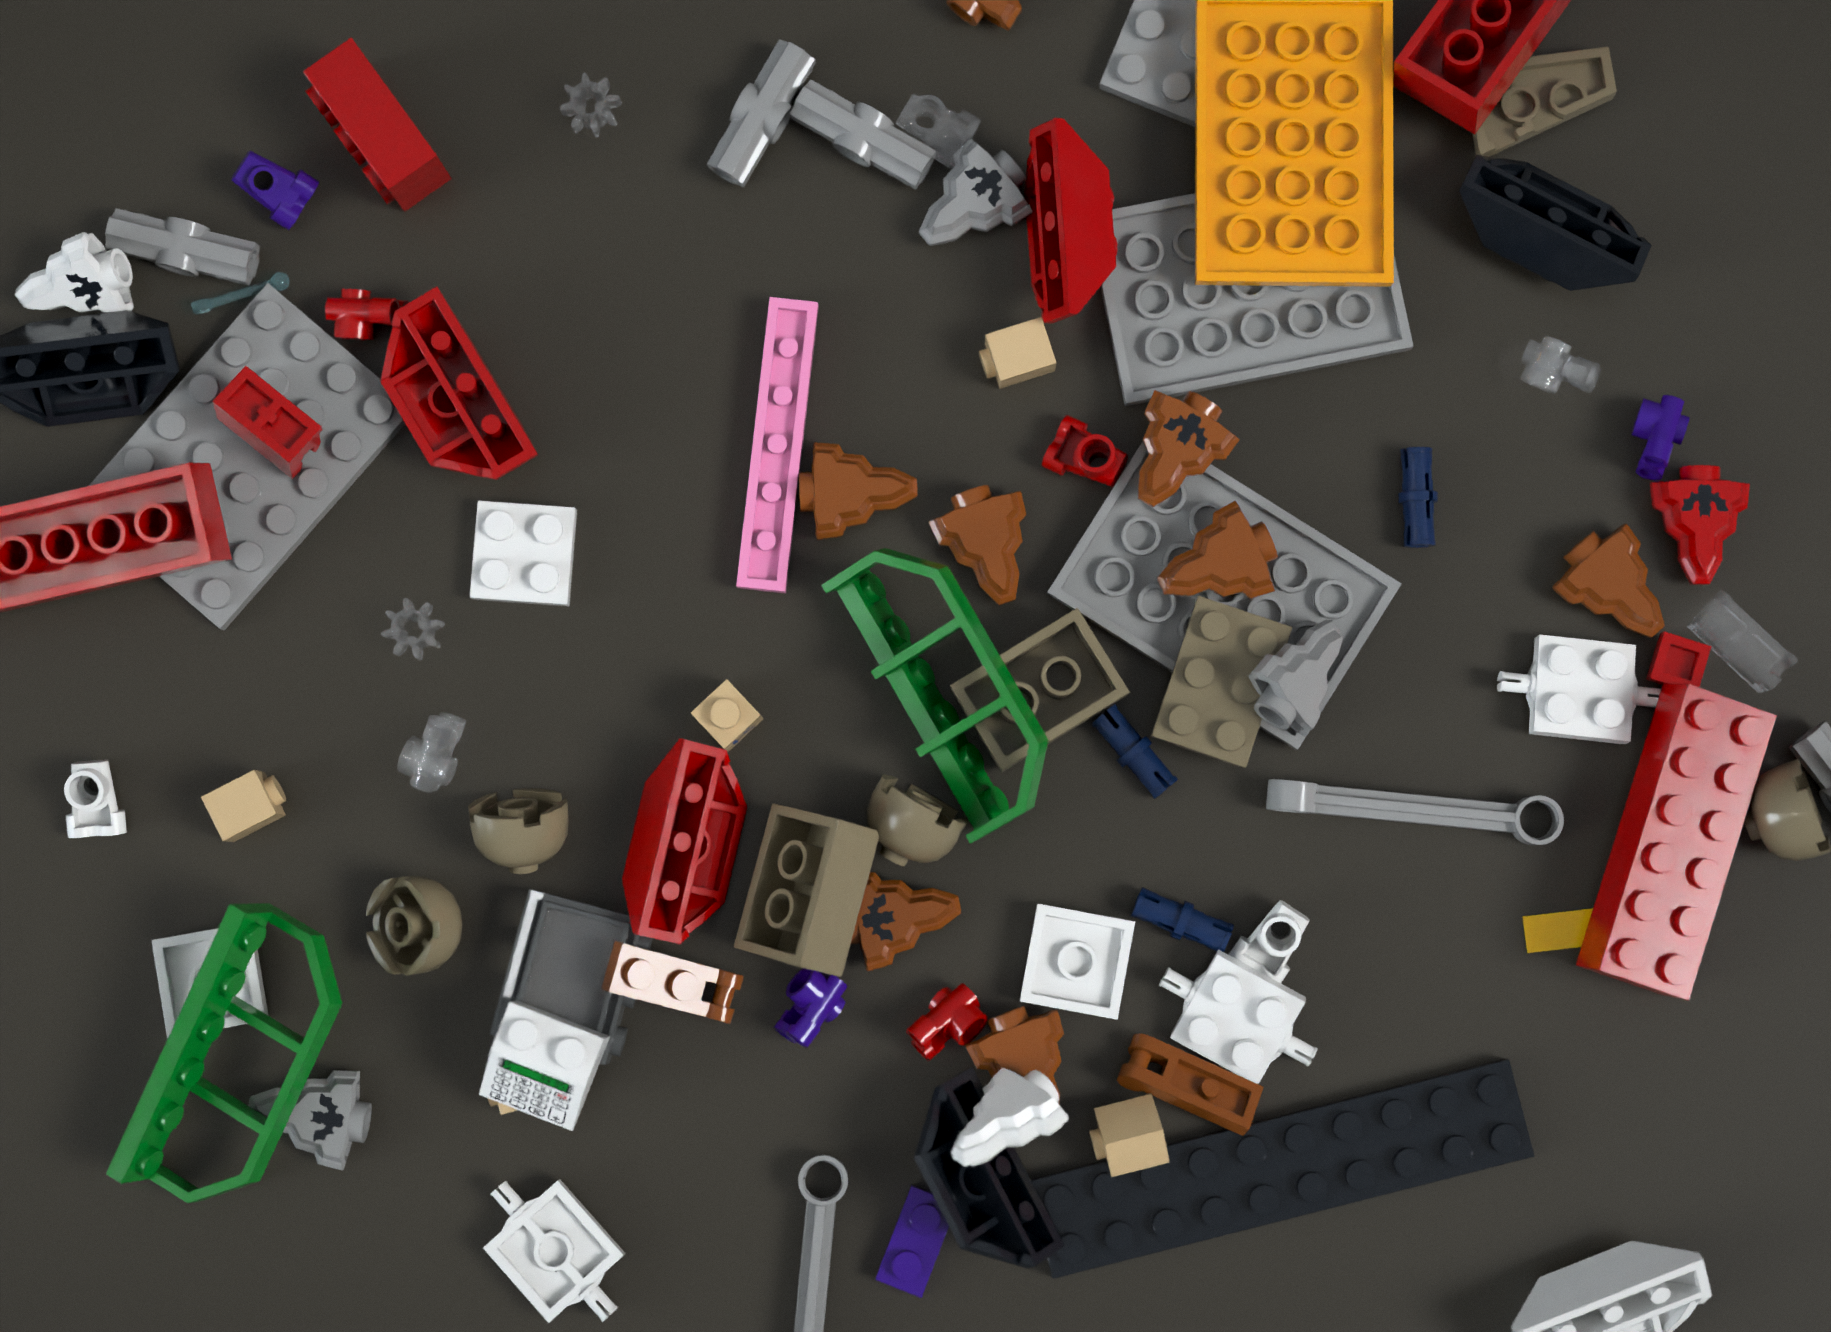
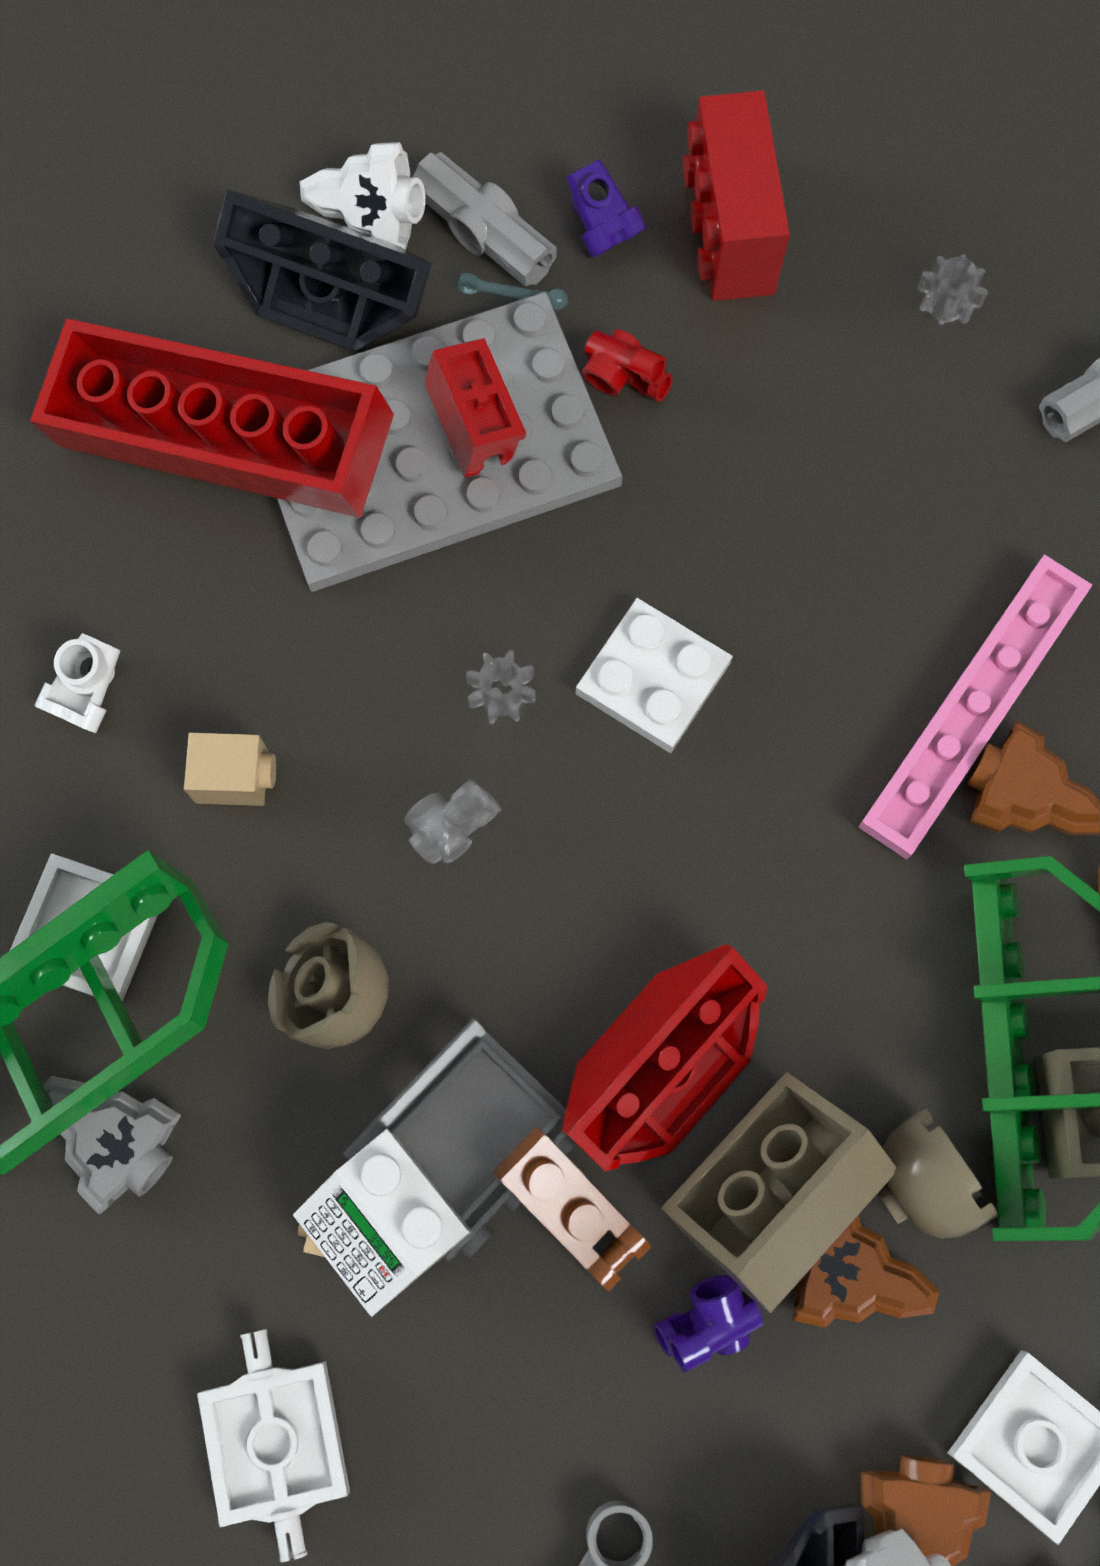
camera: 25 degrees right, 10 degrees down
(450, 393) = (671, 474): red wedge -> none
(520, 829) = (498, 950): dark tan cylinder -> none
(727, 715) = (784, 949): tan brick -> none
(950, 1015) = (862, 1426): red plate -> none

